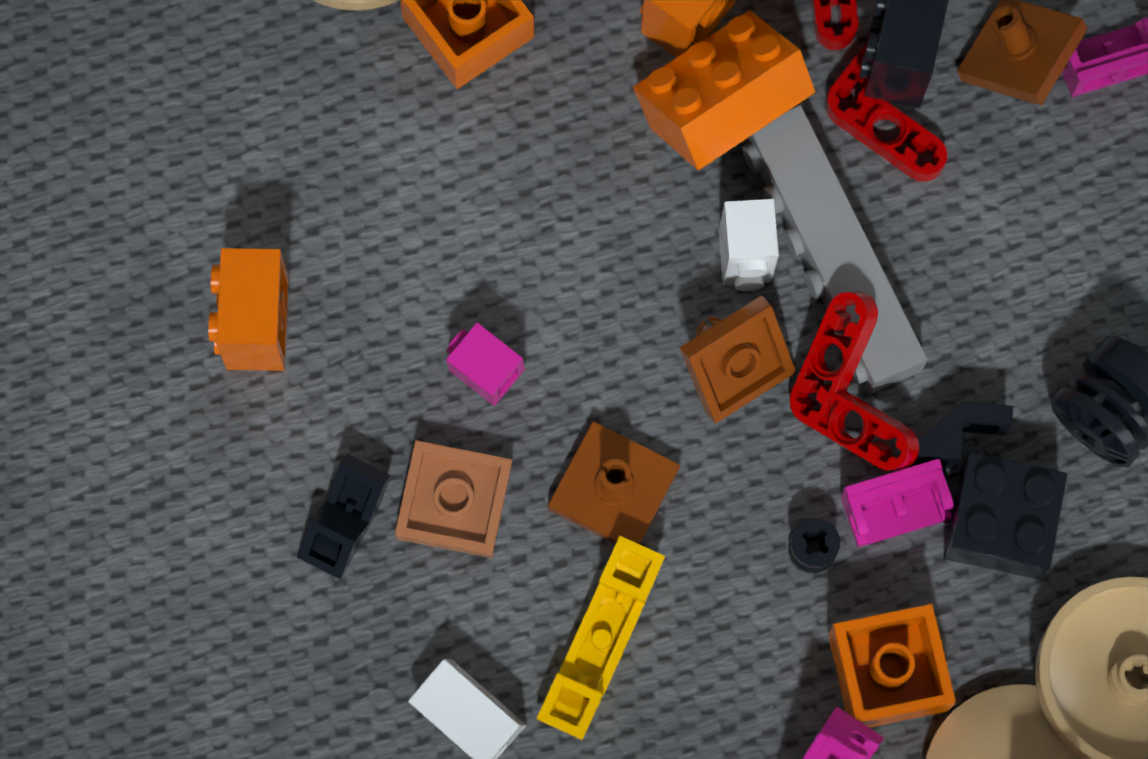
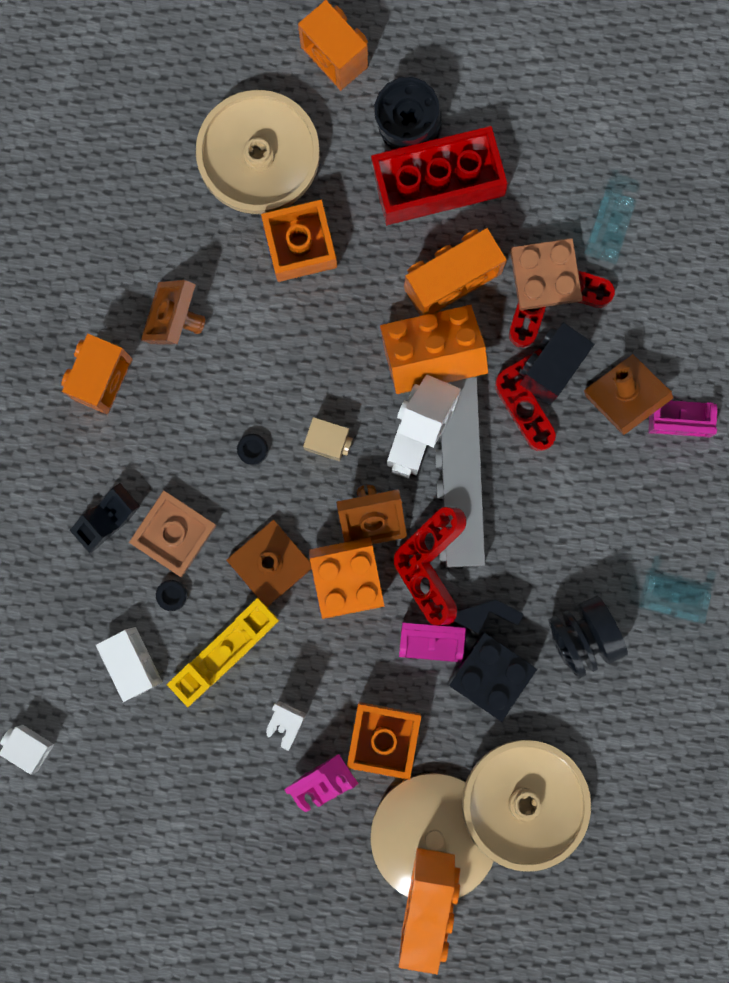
camera: 30 degrees right, 10 degrees up
(323, 186) = (170, 313): none -> dark orange tile
(484, 363) = (221, 460): dark pink brick -> none
(488, 590) = (171, 595): none -> black tile
(521, 333) = (252, 449): none -> black tile
(624, 277) = (328, 439): none -> tan brick
(736, 457) = (346, 578): none -> orange brick
(740, 692) = (288, 719): none -> white hinge
(756, 167) = (428, 410): none -> white brick
(809, 554) = (372, 643): black wheel -> none

